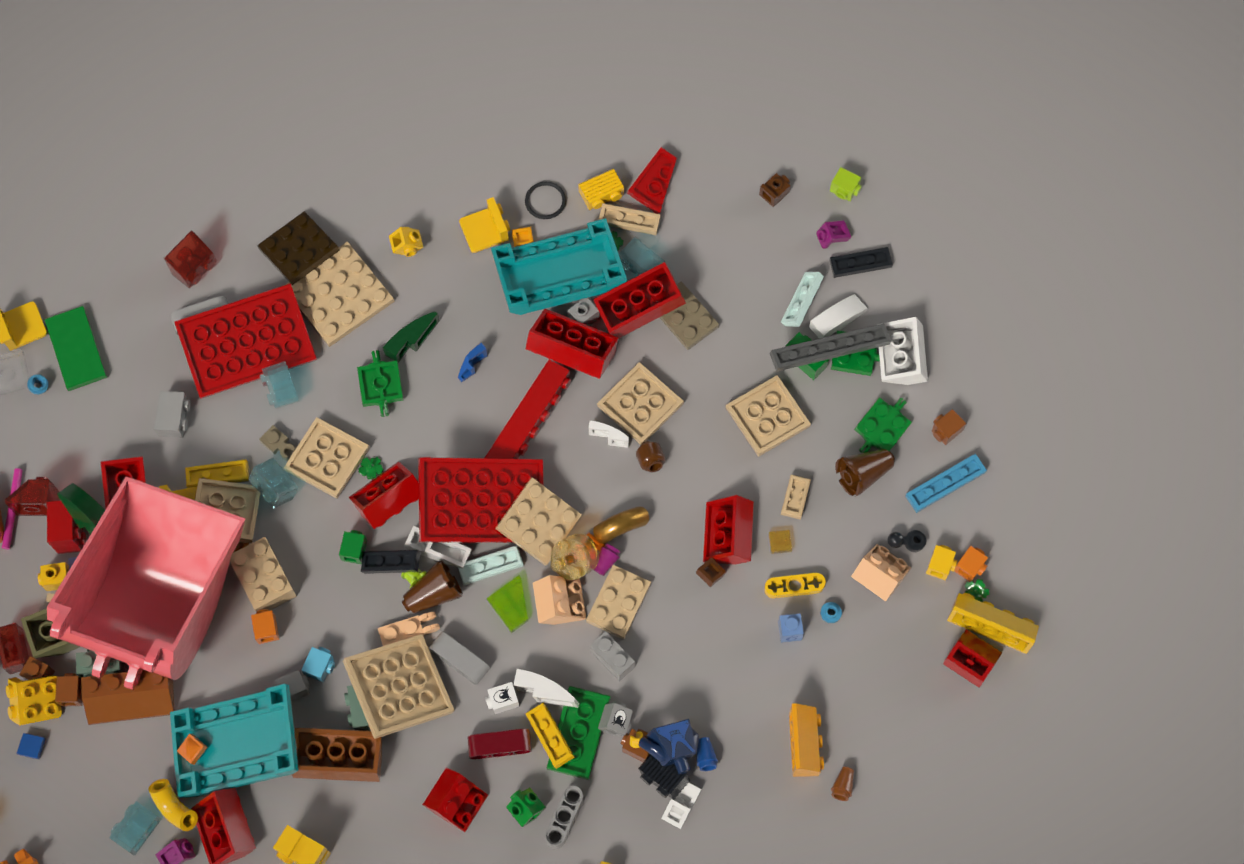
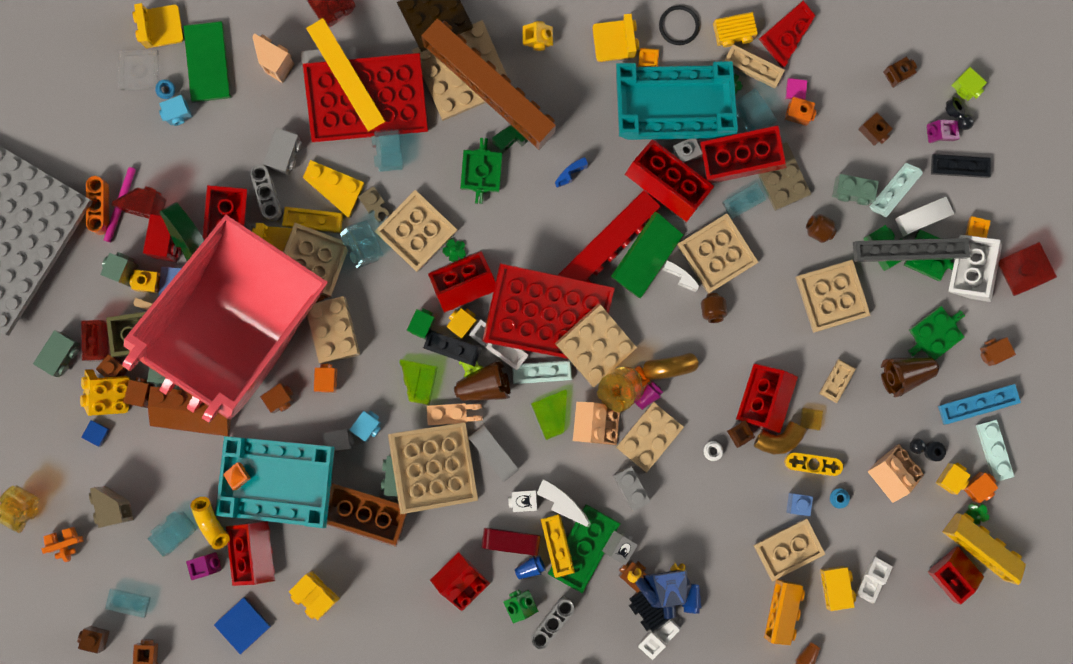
camera: 10 degrees right, 15 degrees up
(23, 568) = (118, 267): none -> sand green brick
(52, 402) = (175, 110): none -> medium azure brick
(63, 816) = (109, 507): none -> dark tan slope
(143, 325) = (272, 58): none -> light nougat slope
(156, 452) = (261, 185): none -> light grey beam
(219, 659) = (278, 398): none -> dark orange brick
(220, 321) = (345, 74): none -> yellow tile
(233, 435) = (334, 186): none -> yellow wing
(364, 604) = (419, 381): none -> clear neon green wing
(367, 294) = (488, 83): none -> dark orange brick
(394, 535) = (461, 322): none -> yellow brick
(526, 766) = (530, 568): none -> blue cone
(568, 422) = (647, 255): none -> green tile
(653, 347) = (744, 201): none -> clear light blue plate
(677, 231) = (796, 88): none -> dark pink tile
(687, 249) = (800, 111): none -> orange brick
(687, 592) = (719, 451): none -> white plate
(737, 353) = (821, 228): none -> reddish brown head
(757, 570) = (780, 443): none -> pearl gold cylinder
(761, 308) = (855, 189): none -> sand green brick
(766, 248) = (876, 129): none -> reddish brown brick
(793, 677) = (789, 549): none -> tan plate
(840, 210) = (956, 109): none -> black plate
(854, 702) = (838, 588): none -> yellow brick
(890, 686) = (873, 579): none -> white slope
(893, 313) = (977, 227): none -> light orange plate
(954, 341) = (1026, 269): none -> clear red slope
(976, 525) = (995, 450): none -> light aqua plate

